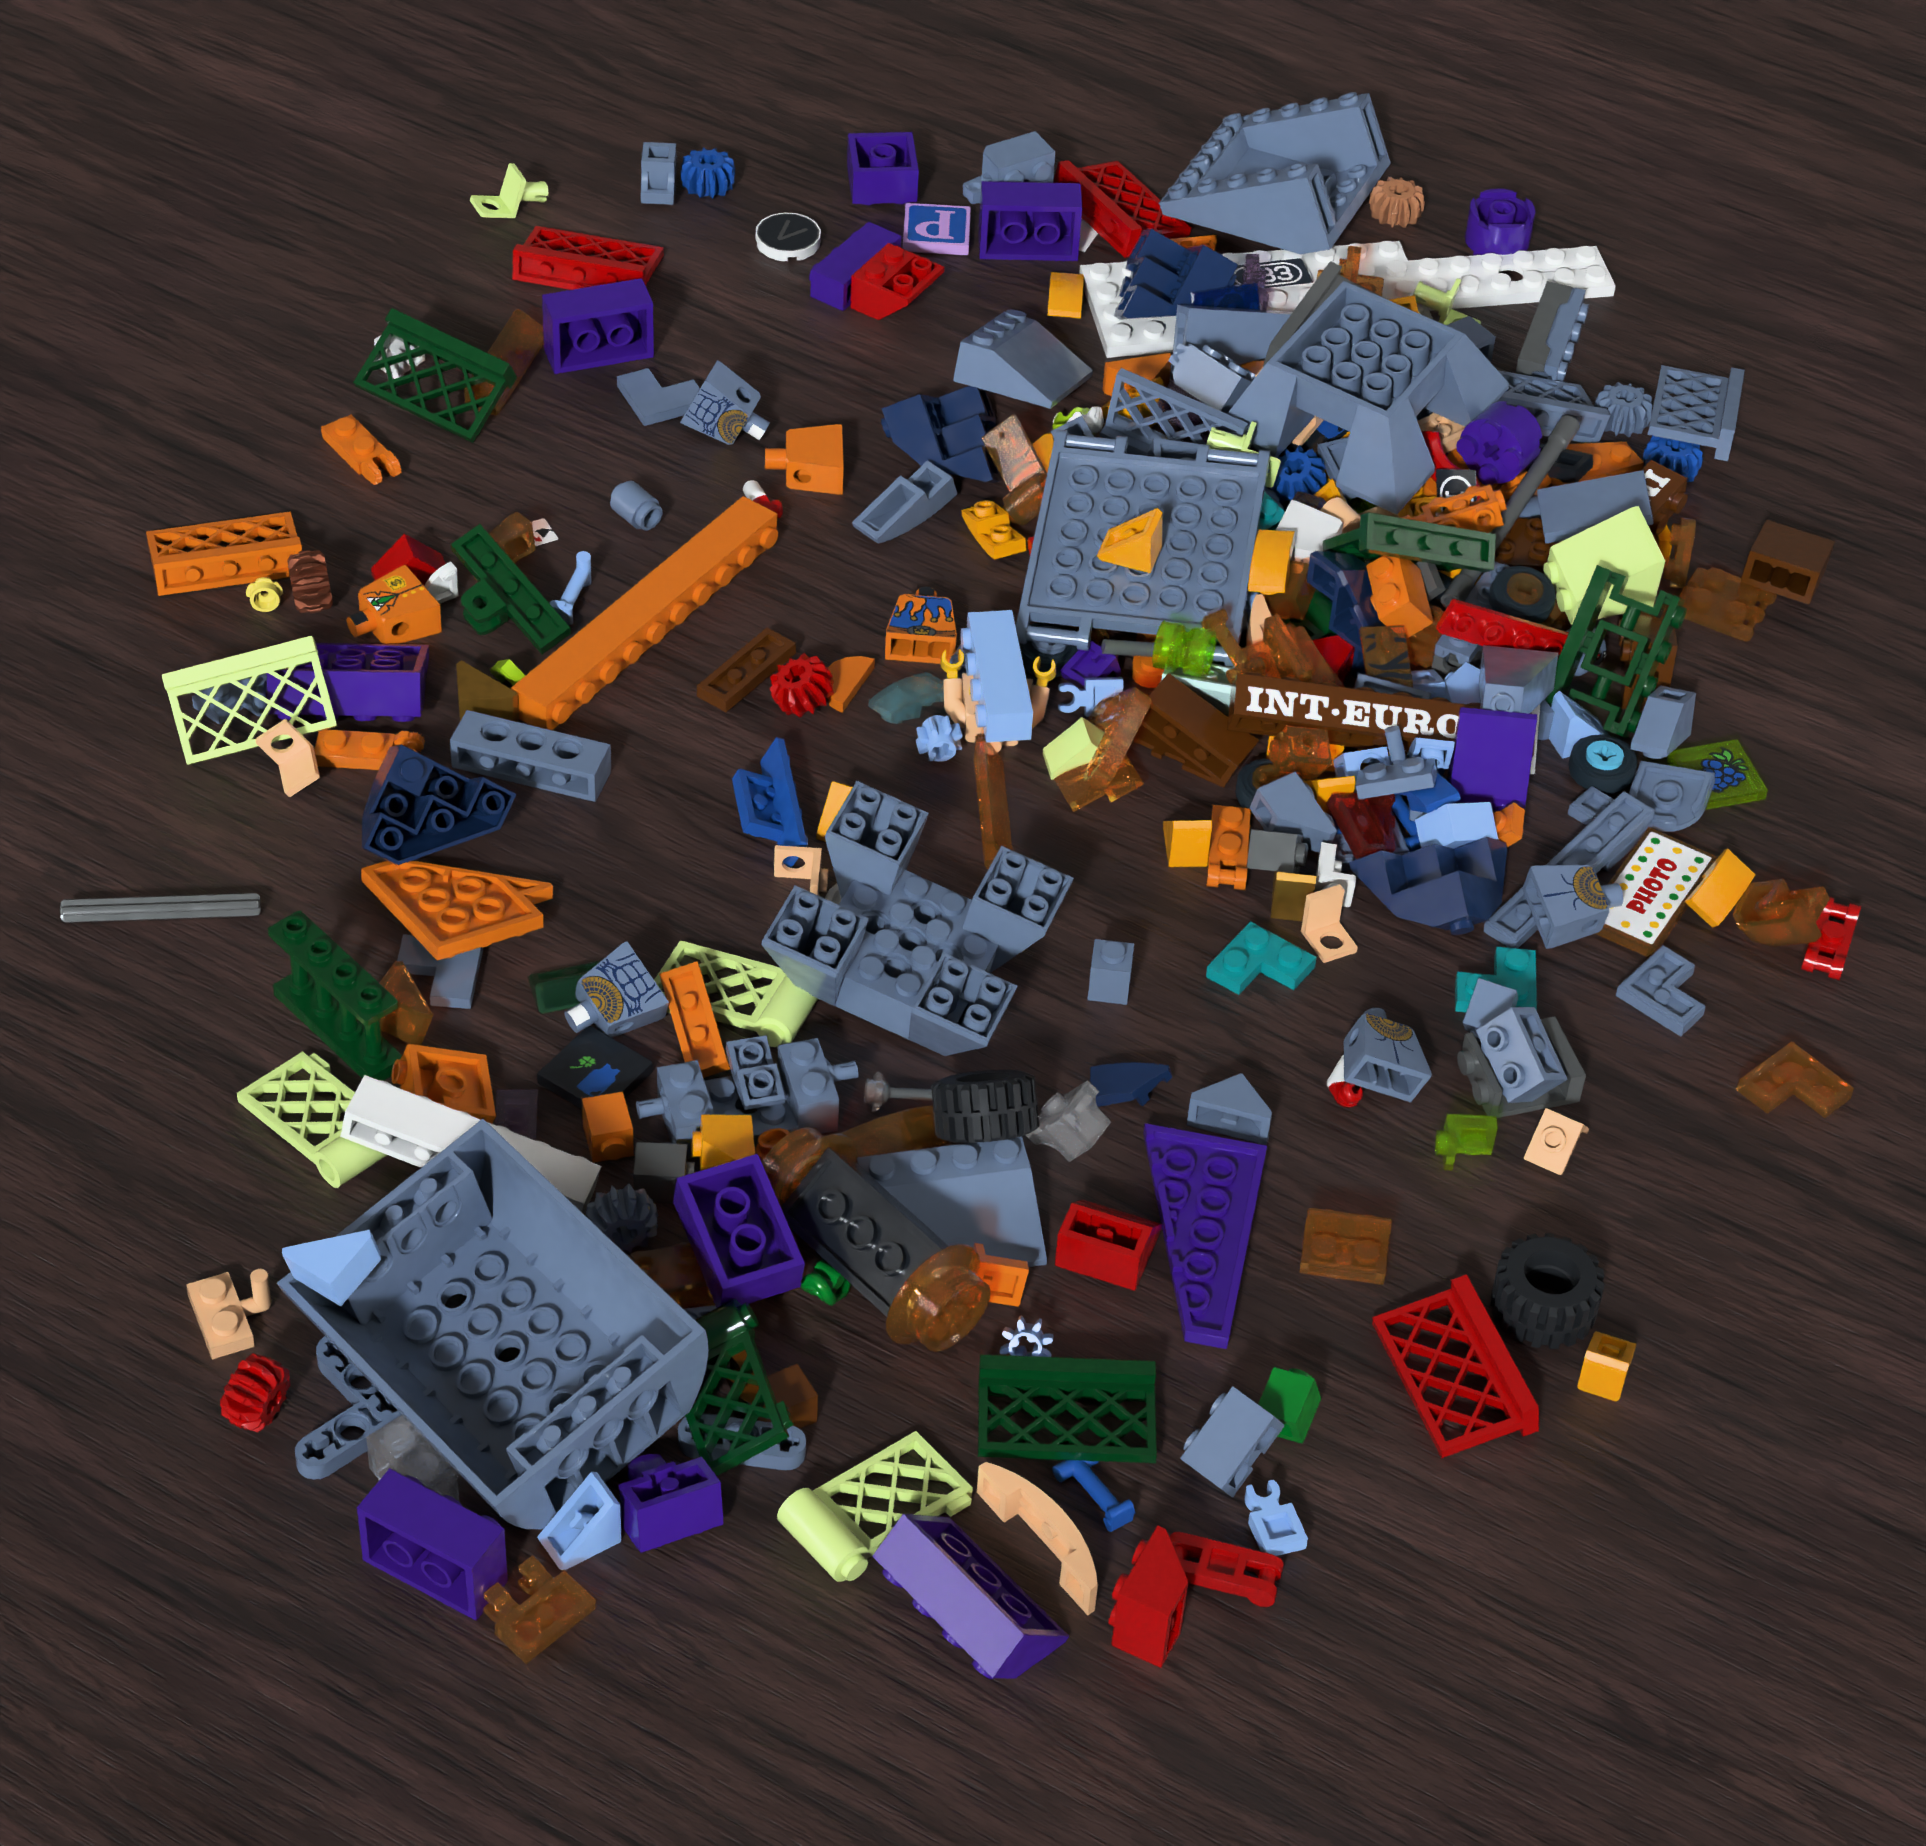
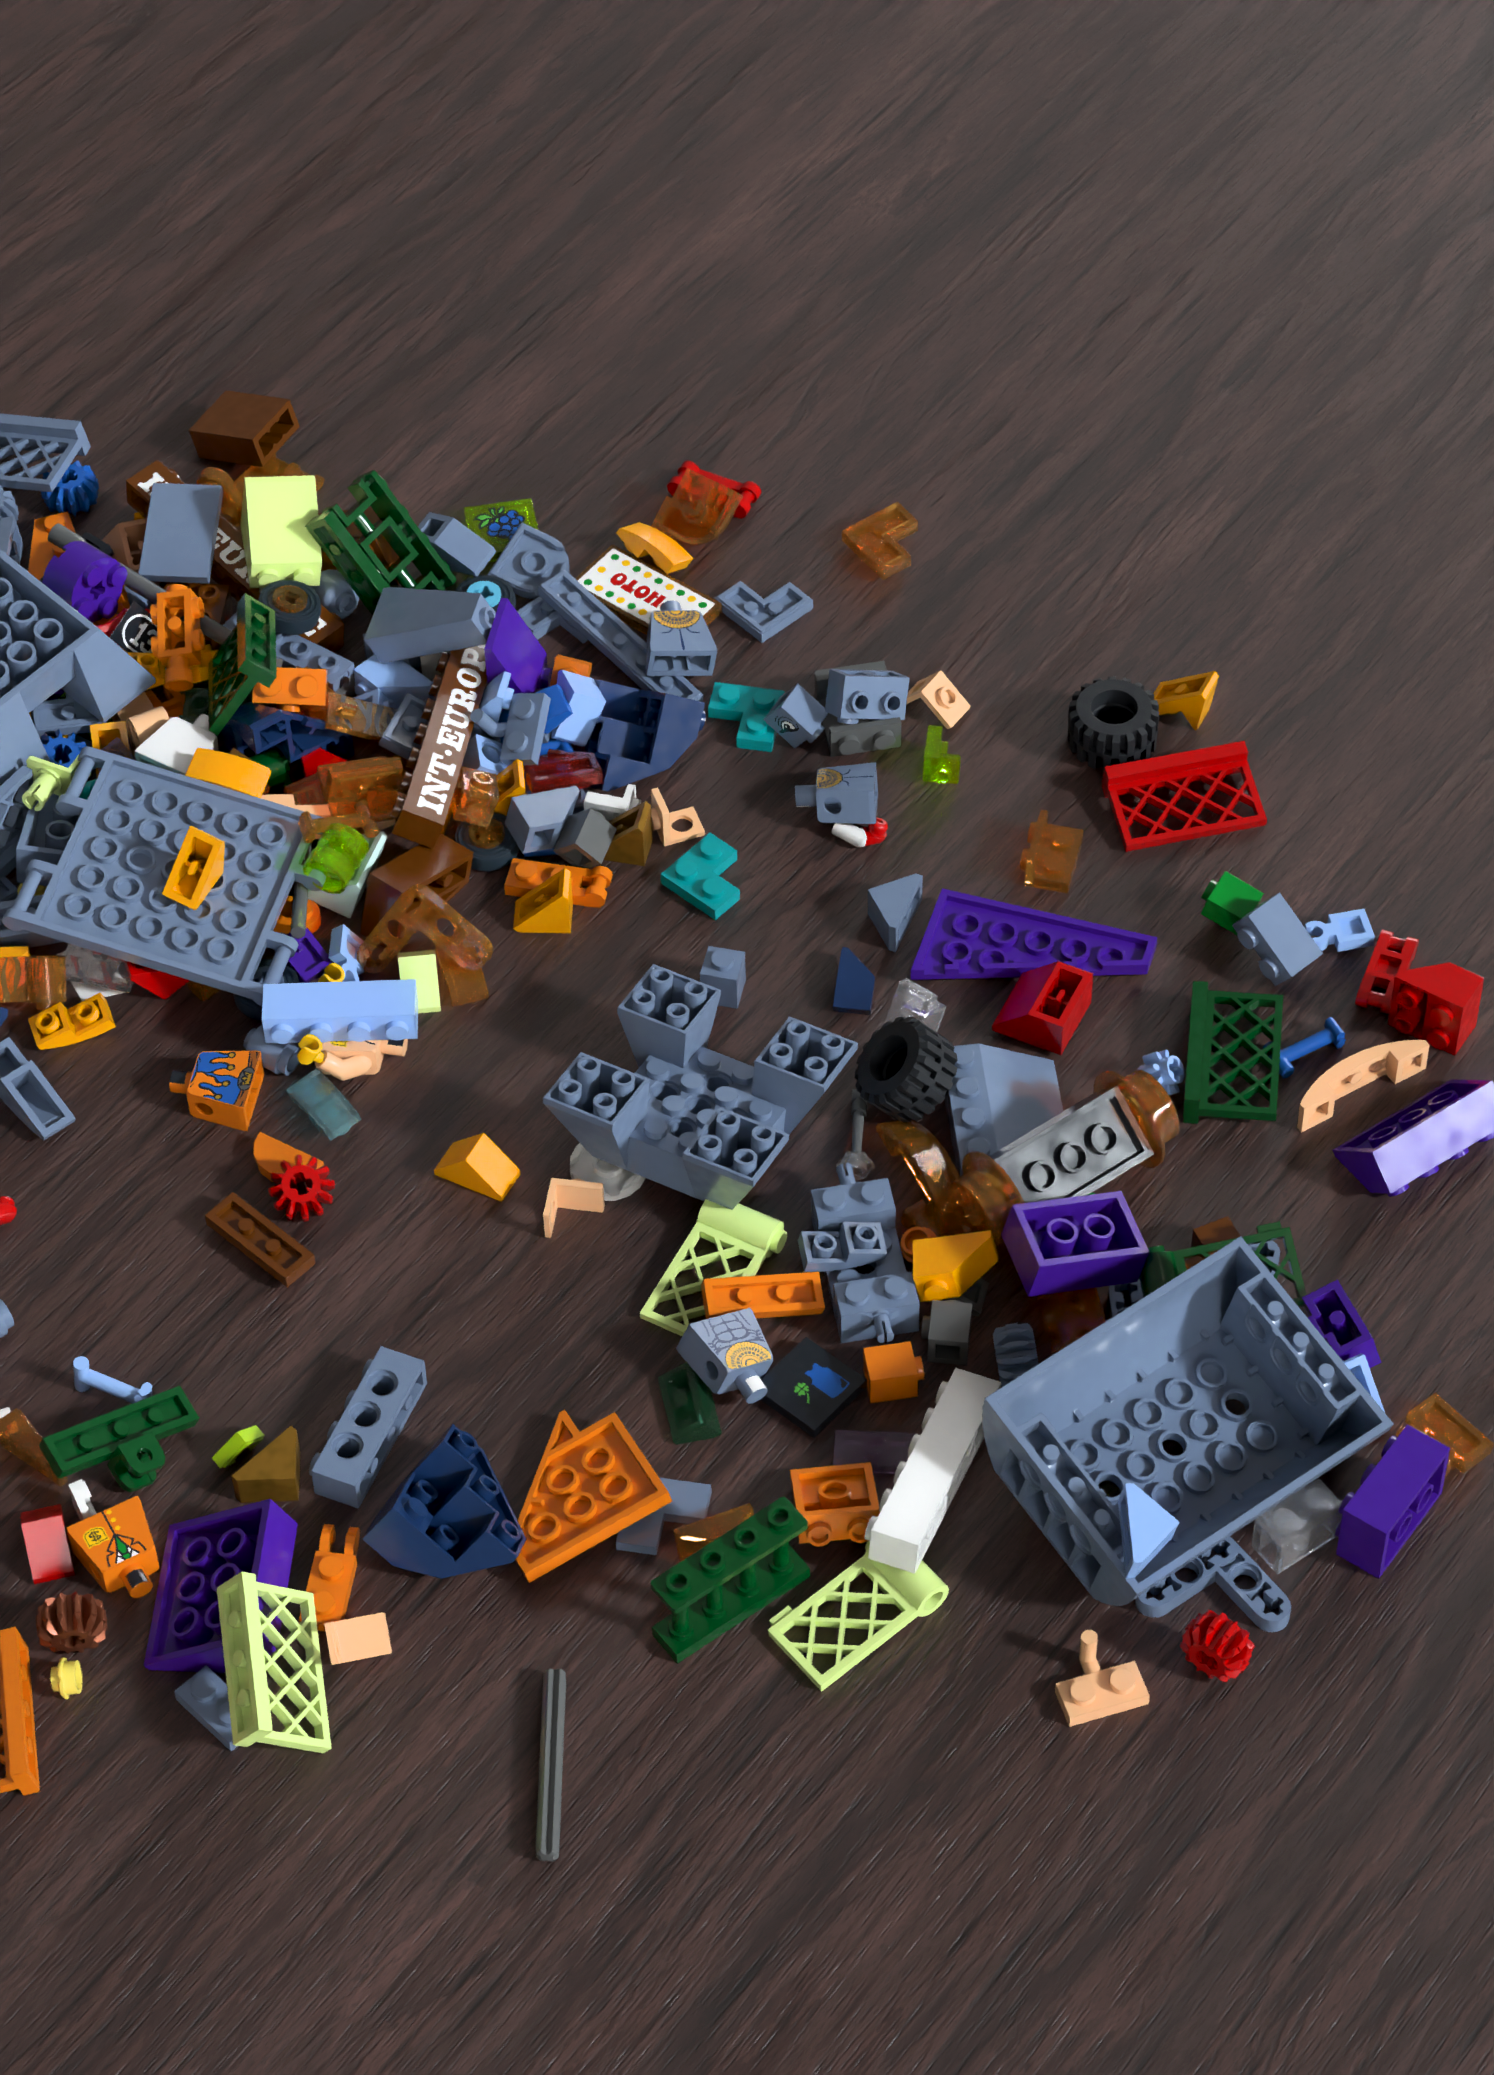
camera: 80 degrees left, 5 degrees up
(645, 614) = (162, 1318): orange brick -> none
(770, 802) = (464, 1222): blue bracket -> none
(828, 1528) = (1357, 1225): yellowish green piece -> none
(939, 738) = (391, 1083): light blue gear -> none
(991, 799) = (481, 1055): clear orange slope -> none
(1004, 1276) = (1082, 1085): orange bracket -> none
(1498, 629) = (346, 631): red bracket -> none

